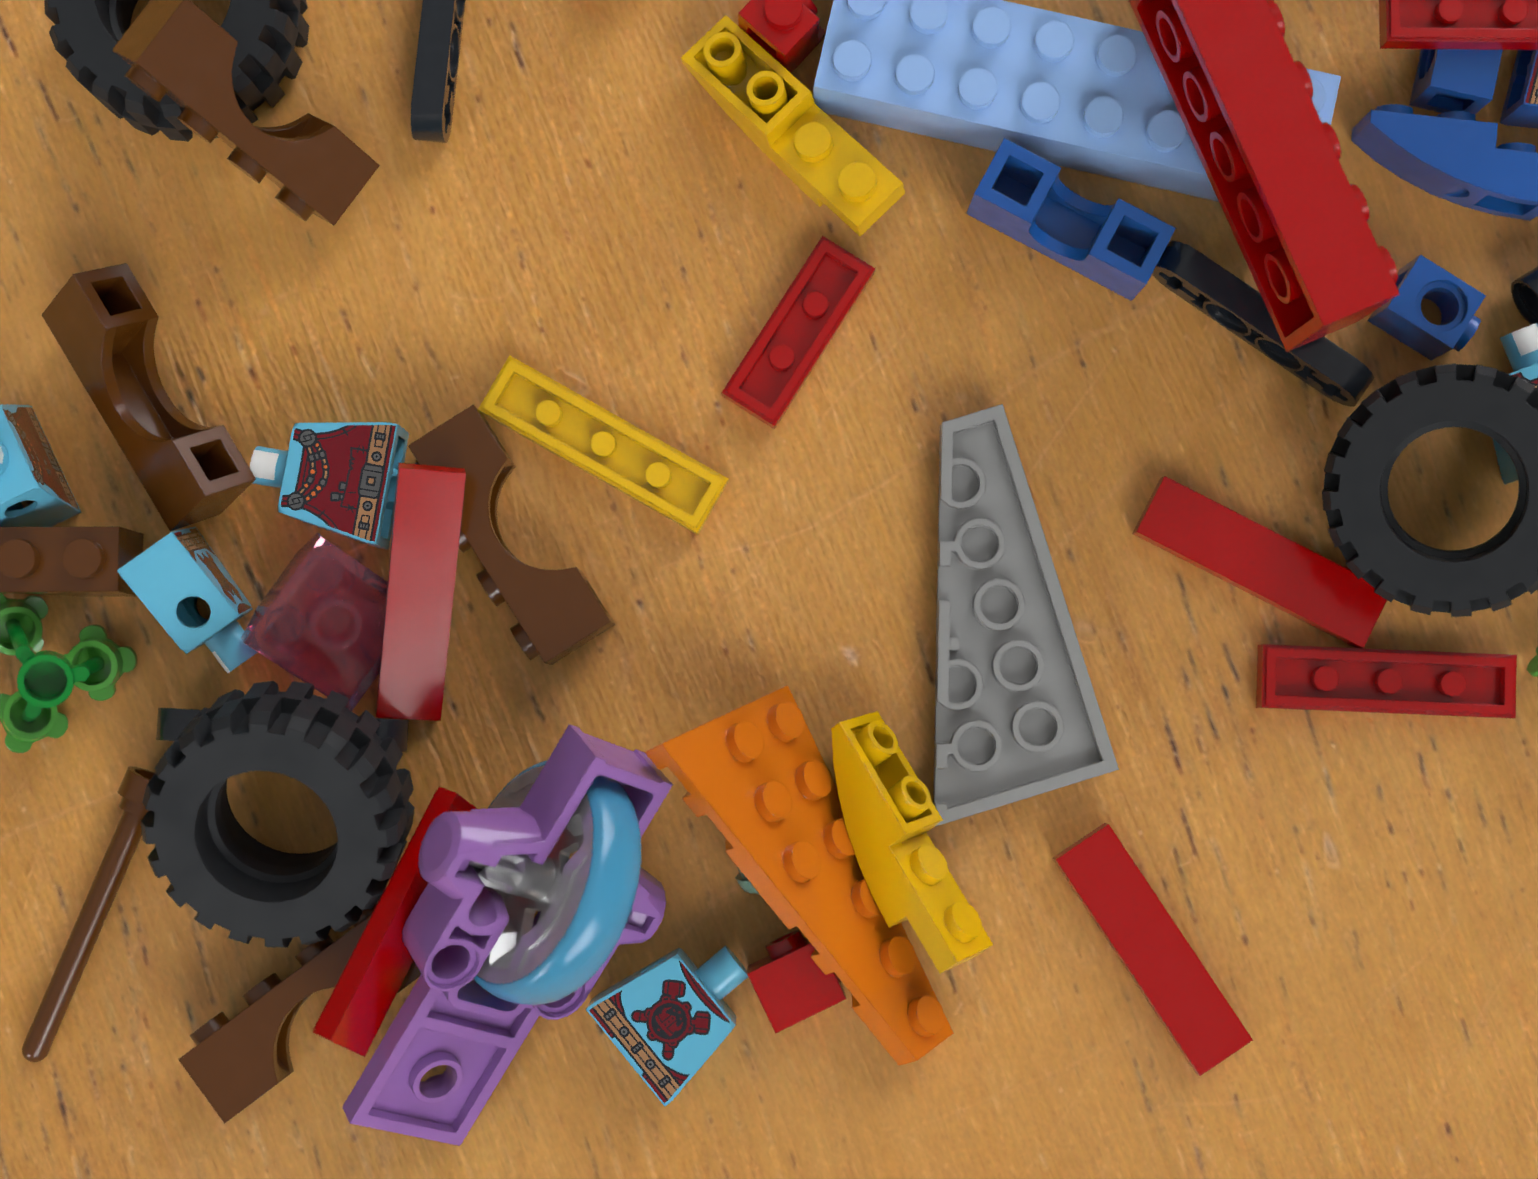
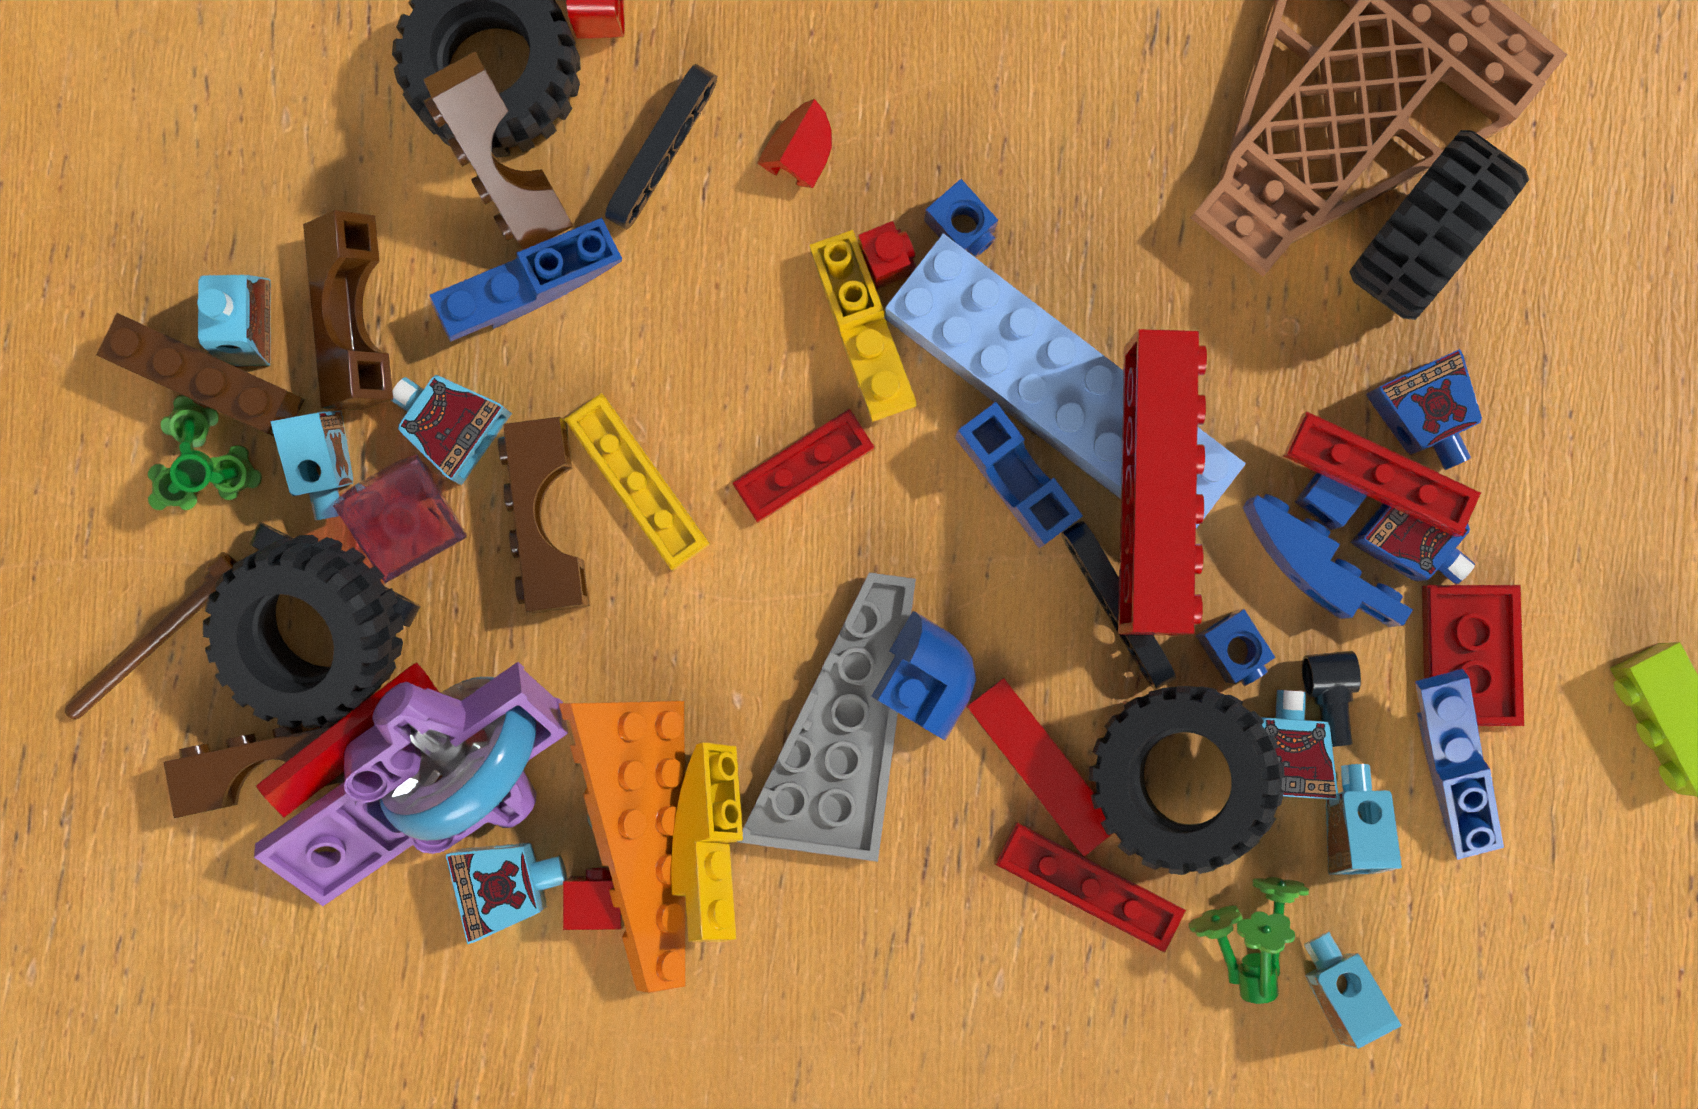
camera: 30 degrees right, 0 degrees up
(355, 261) = (528, 282): none -> blue slope
(420, 591) = (466, 525): red tile -> none
(1076, 515) = (928, 676): none -> blue brick
(1152, 949) = (845, 993): red tile -> none

